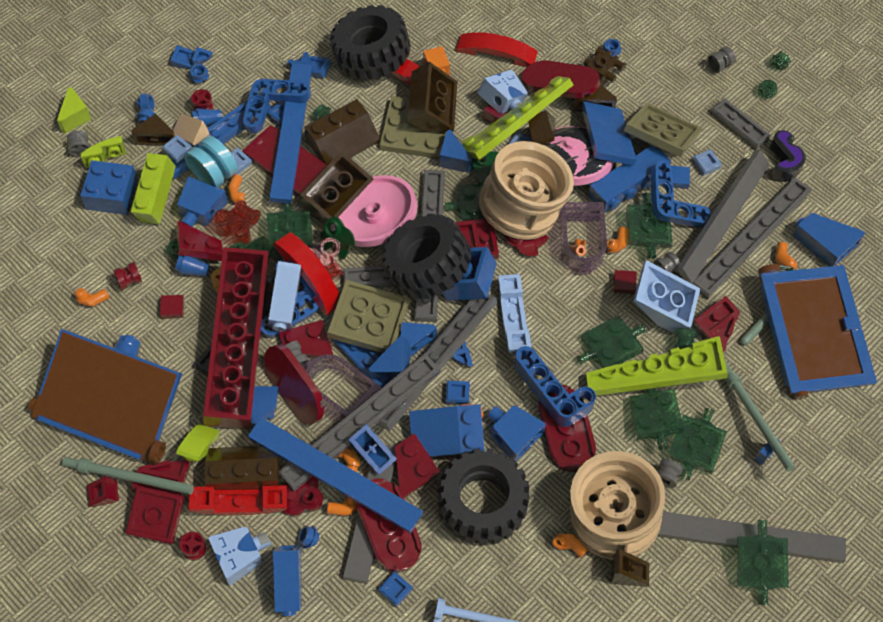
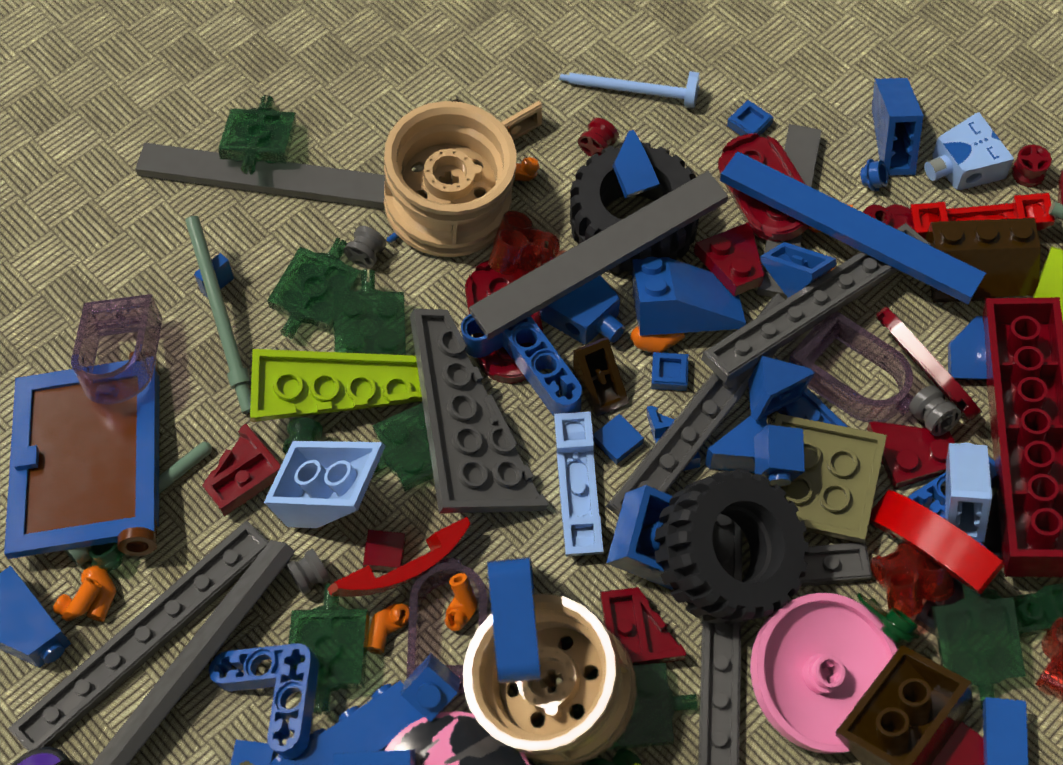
camera: 175 degrees left, 0 degrees up
(394, 315) = (779, 454): none -> blue brick
(487, 500) = (634, 167): none -> blue slope
(490, 348) = (618, 439): none -> blue tile
(504, 382) = (599, 376): none -> dark brown slope
(505, 438) = (598, 254): none -> dark grey tile
(510, 564) = (598, 137): none -> dark red wheel
(551, 215) = (514, 620): none -> blue beam
(556, 467) = (521, 245): none -> clear red piece
(576, 579) = (524, 120): none -> tan slope
(583, 335) = (466, 433): none -> dark grey wing
(589, 190) = (430, 687): none -> blue brick
(611, 260) = (365, 583): none -> red slope
(795, 247) = (80, 603): none -> orange arm
(836, 388) = (112, 318): none -> window

